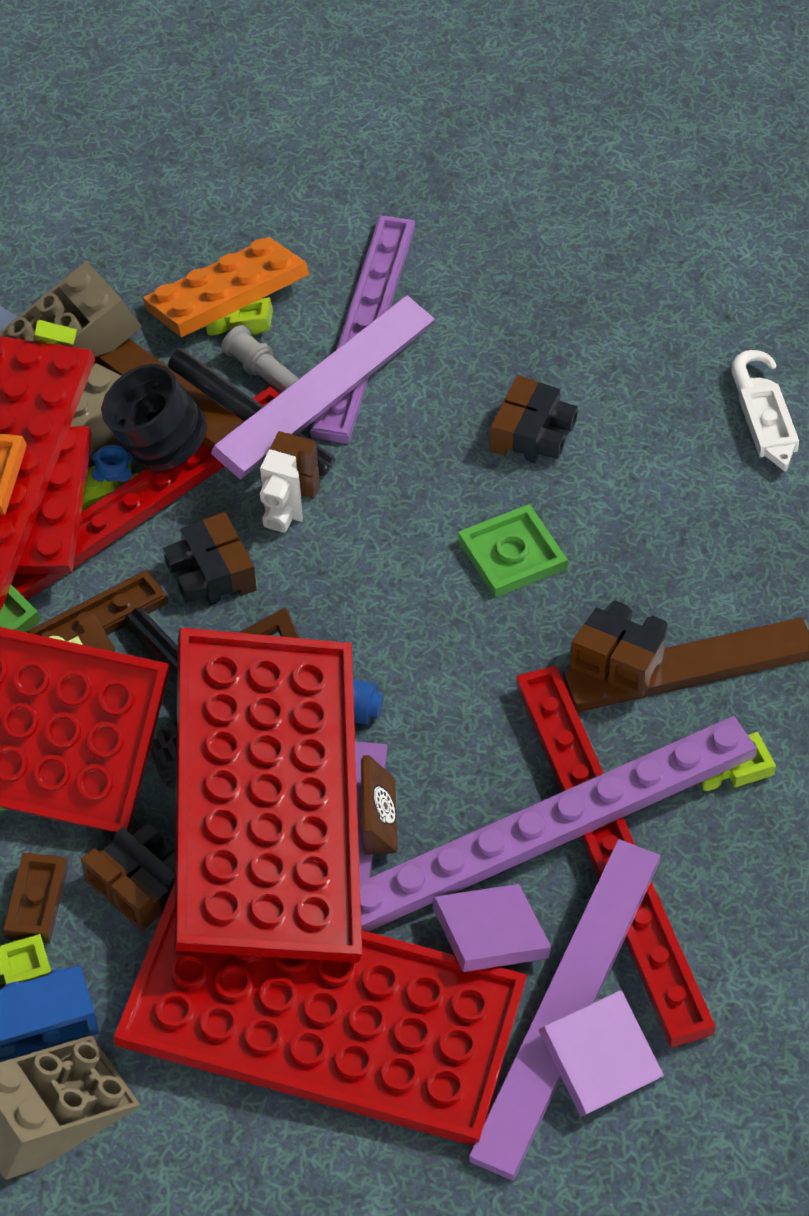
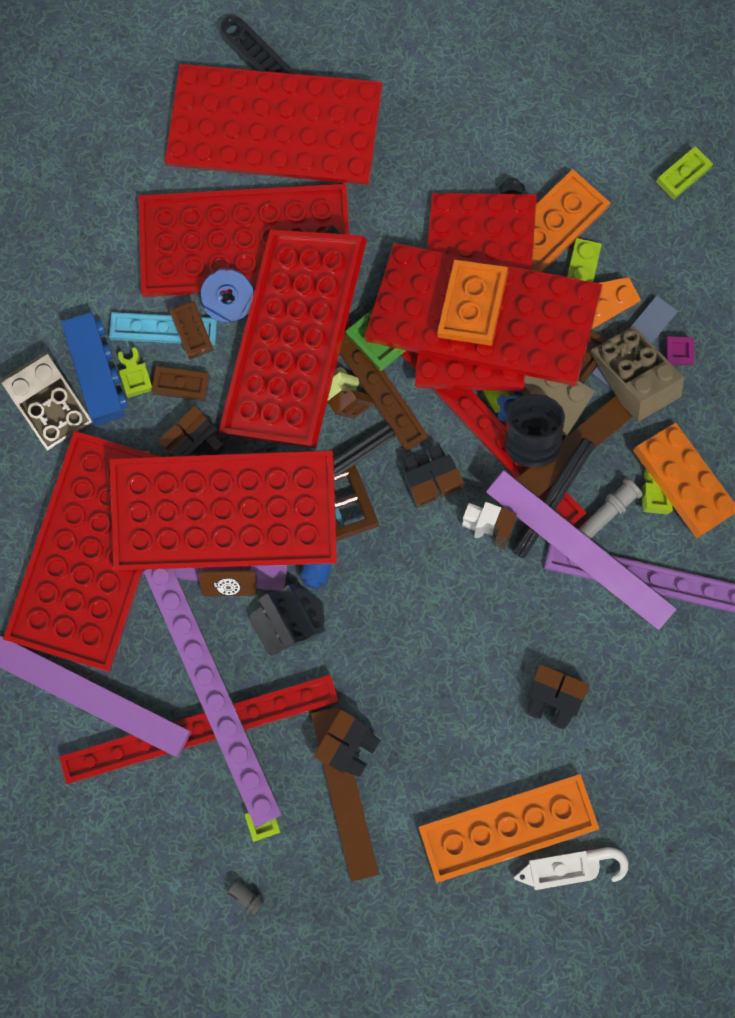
camera: 90 degrees right, 25 degrees up
(34, 286) = (679, 350): none -> magenta plate
(54, 334) = (596, 358): lime plate -> none
(437, 733) = (288, 618): none -> black piece
(491, 927) = (141, 651): medium lavender tile -> none
(512, 550) = (444, 678): bright green tile -> none
(600, 1053) = (50, 712): tile -> none
(720, 476) = (508, 828): none -> orange plate

